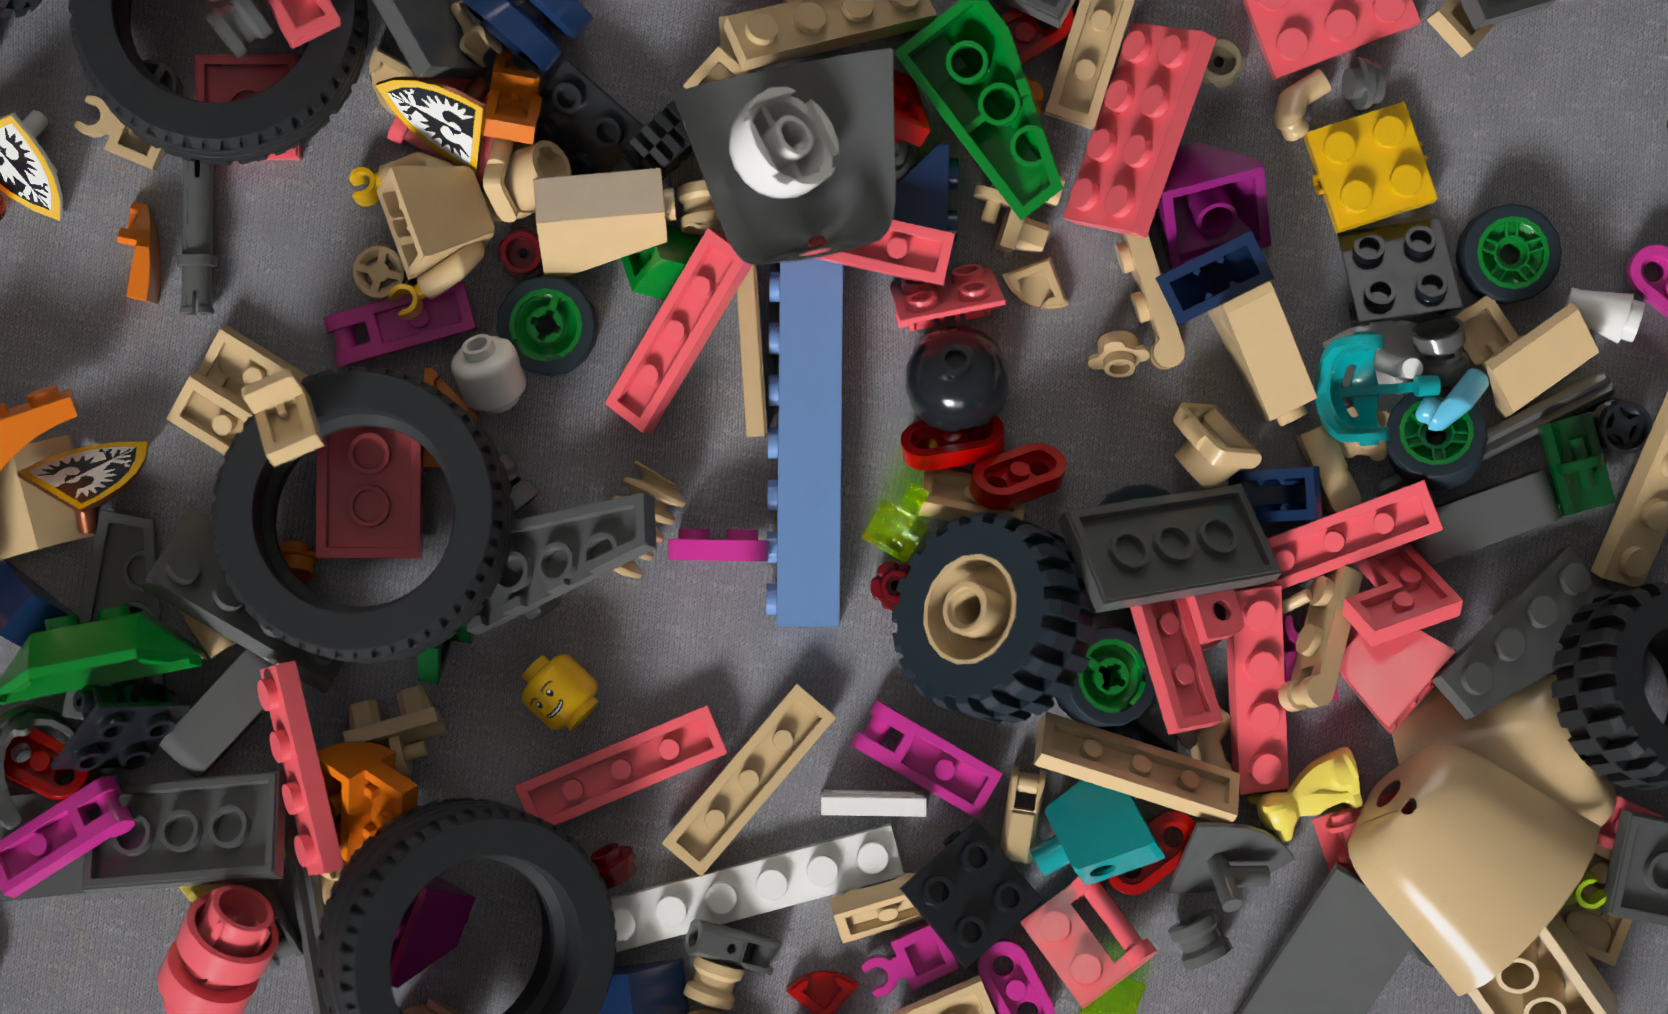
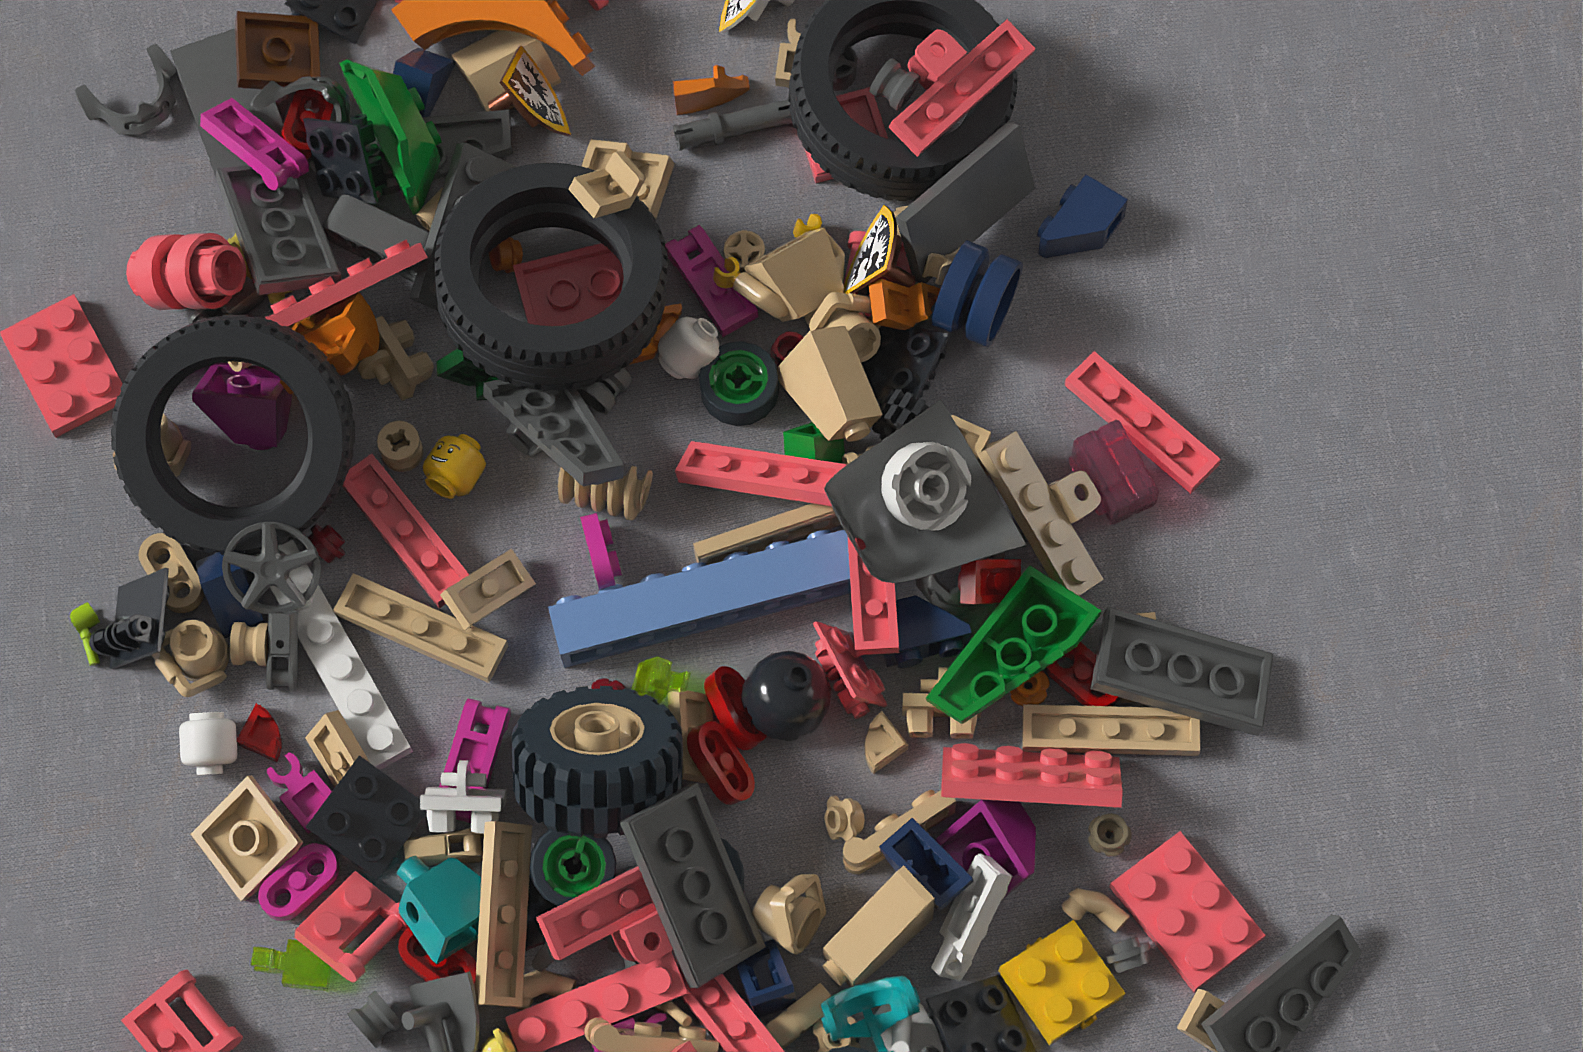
camera: 75 degrees right, 20 degrees down
(517, 742) = (404, 455): none -> tan wheel
(640, 939) = (271, 568): none -> dark grey wheel
(728, 690) = (487, 589): none -> tan plate
(873, 803) = (425, 726): white tile -> none
(983, 780) = (443, 802): none -> white hips
(1283, 243) = (970, 917): none -> white hinge

